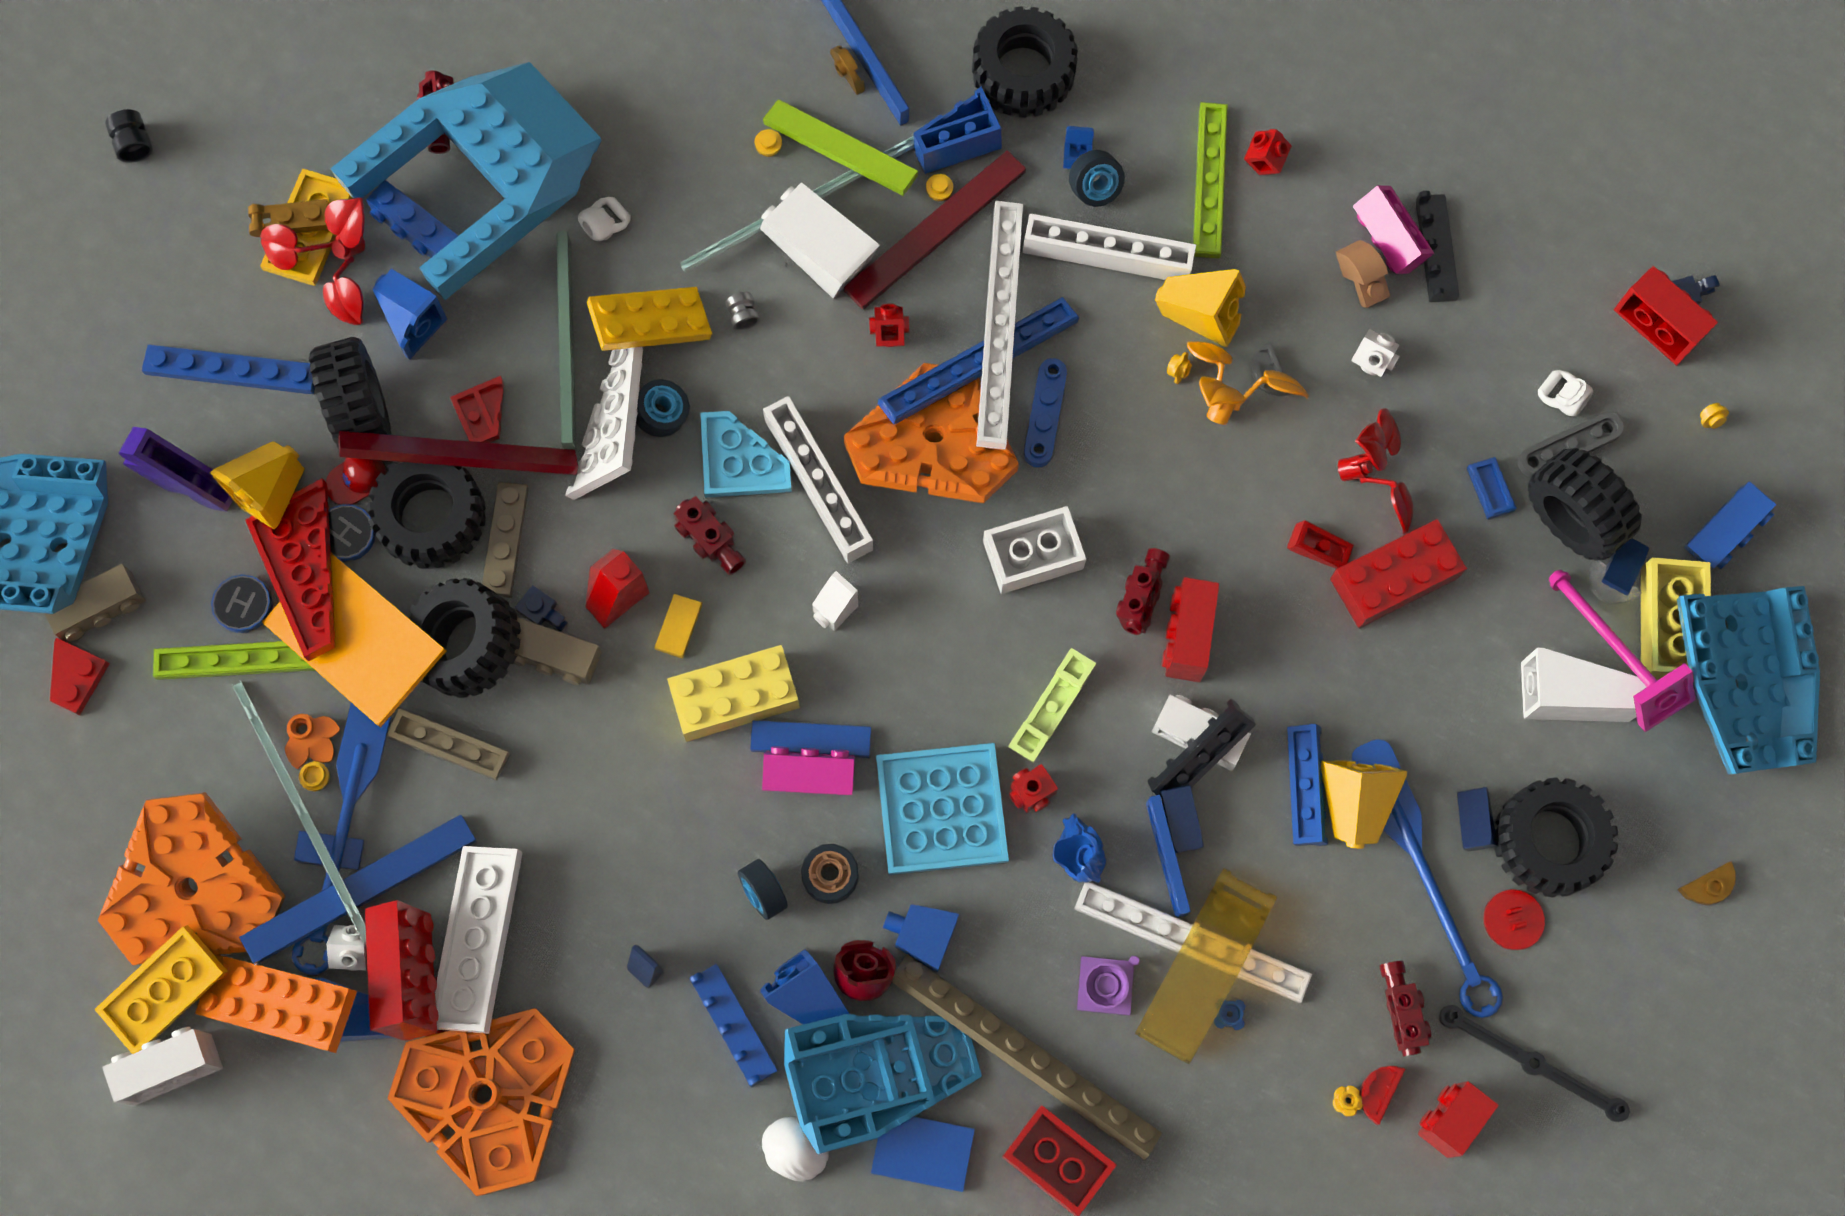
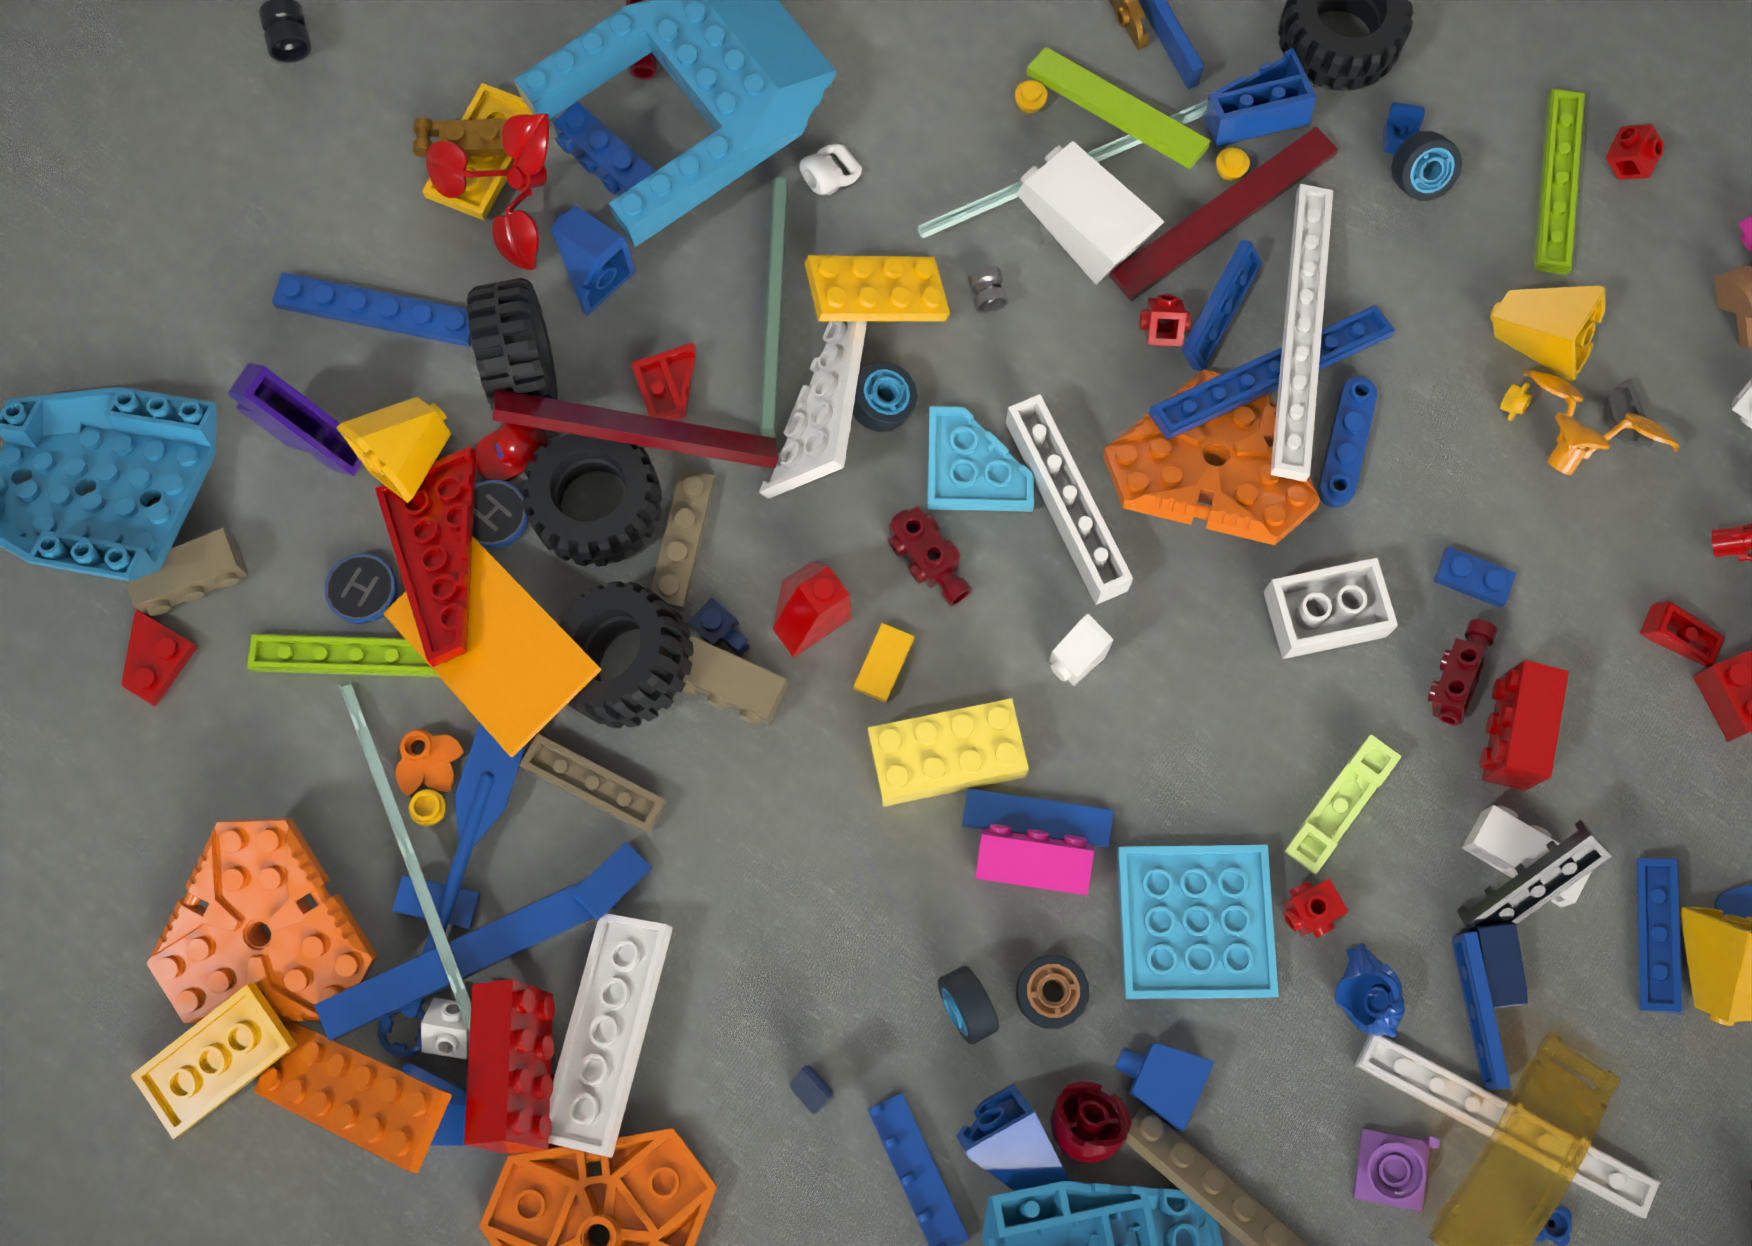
camera: 10 degrees right, 0 degrees up
(162, 1066) = (203, 1158): white brick -> none
(470, 820) = (611, 881): none -> blue tile
(936, 308) = (1222, 305): none -> blue tile
(1107, 248) = (1436, 250): white brick -> none
(1152, 514) = (1474, 577): none -> blue plate

